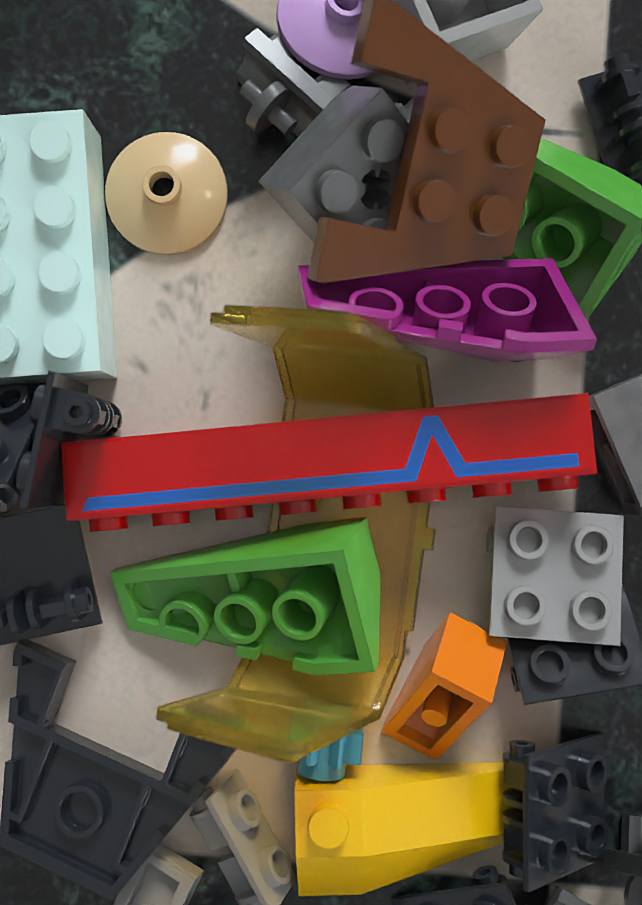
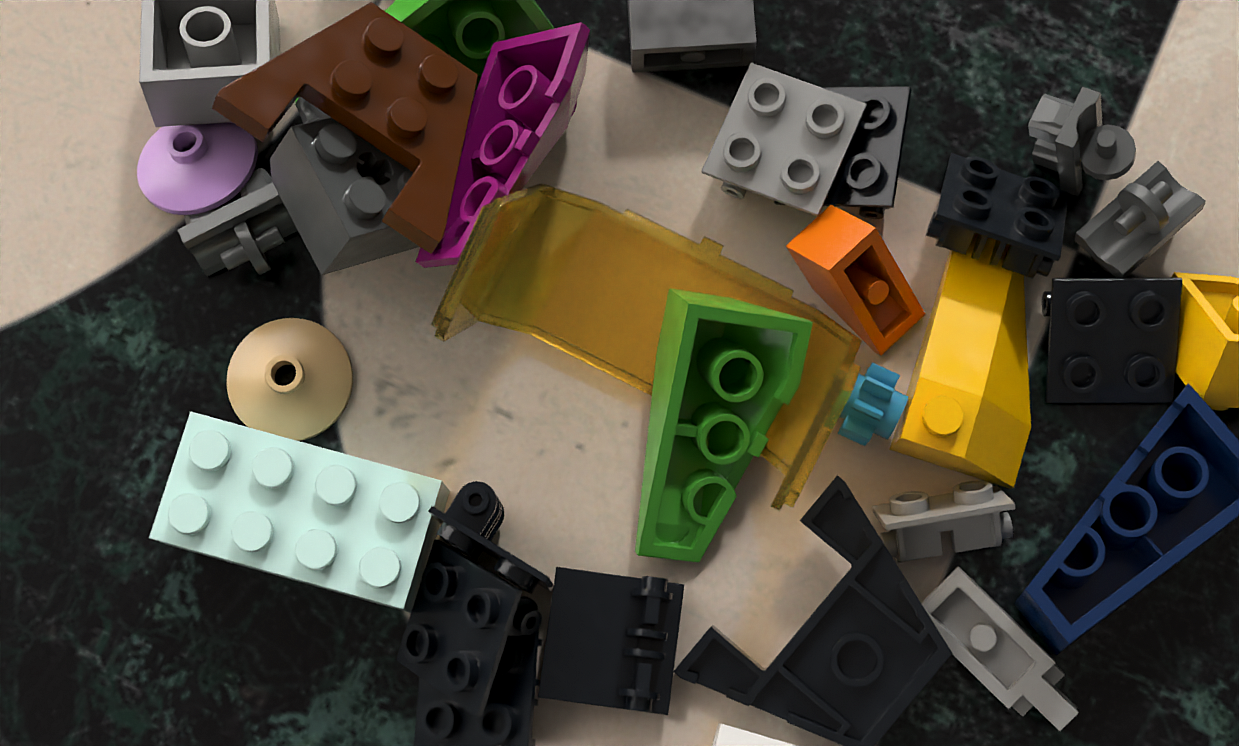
camera: 65 degrees left, 10 degrees down
(330, 458) = (602, 310): red brick -> none

